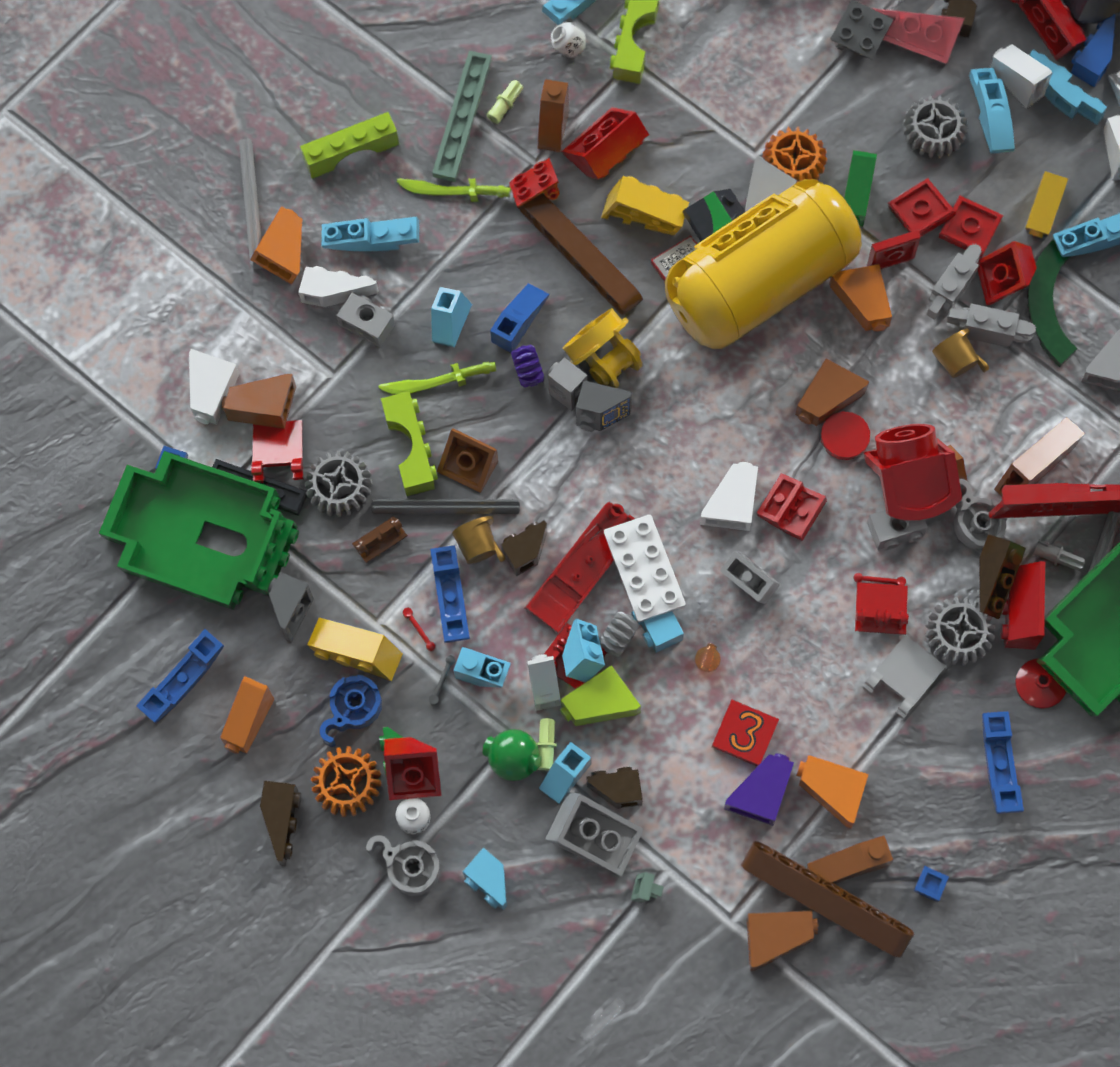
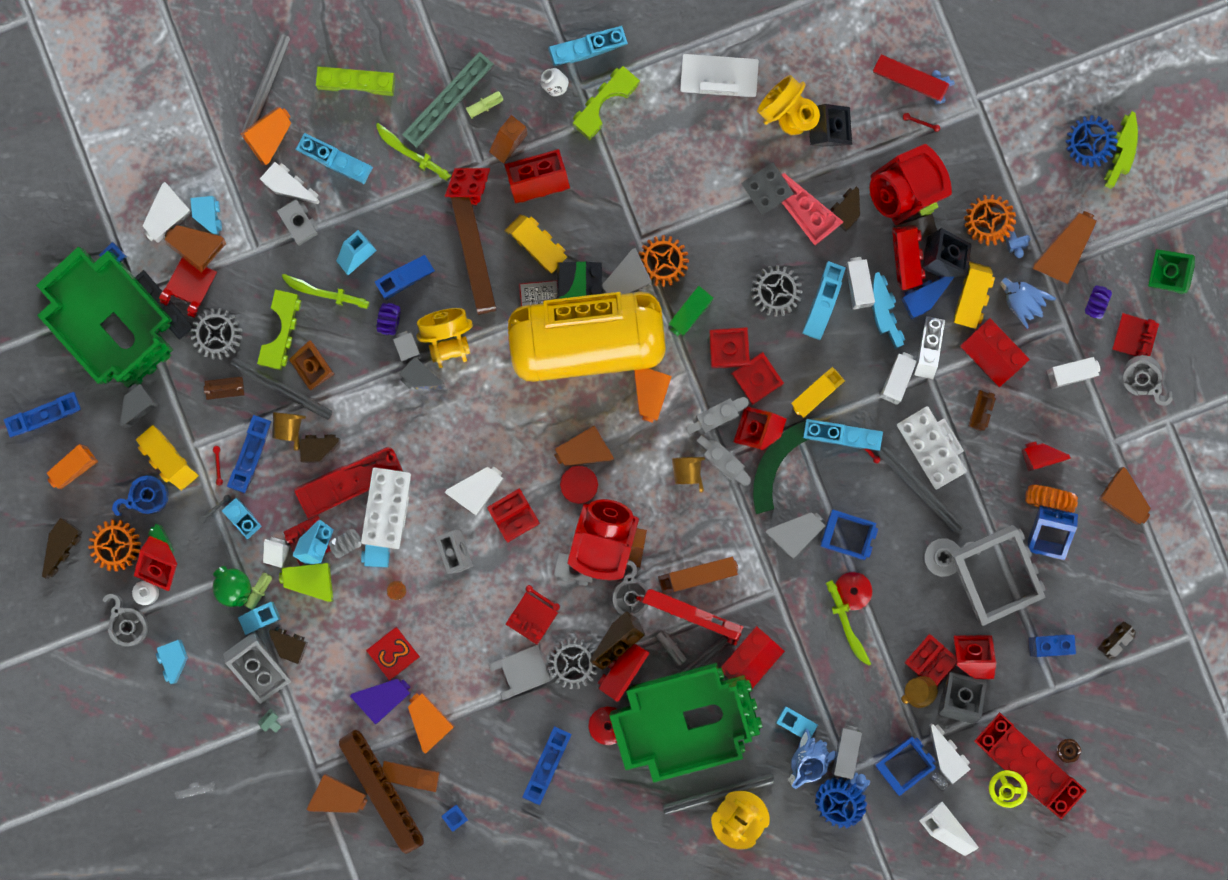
camera: 25 degrees right, 15 degrees up
(254, 360) = (205, 212): none -> medium azure slope
(894, 250) = (687, 372): red tile -> none

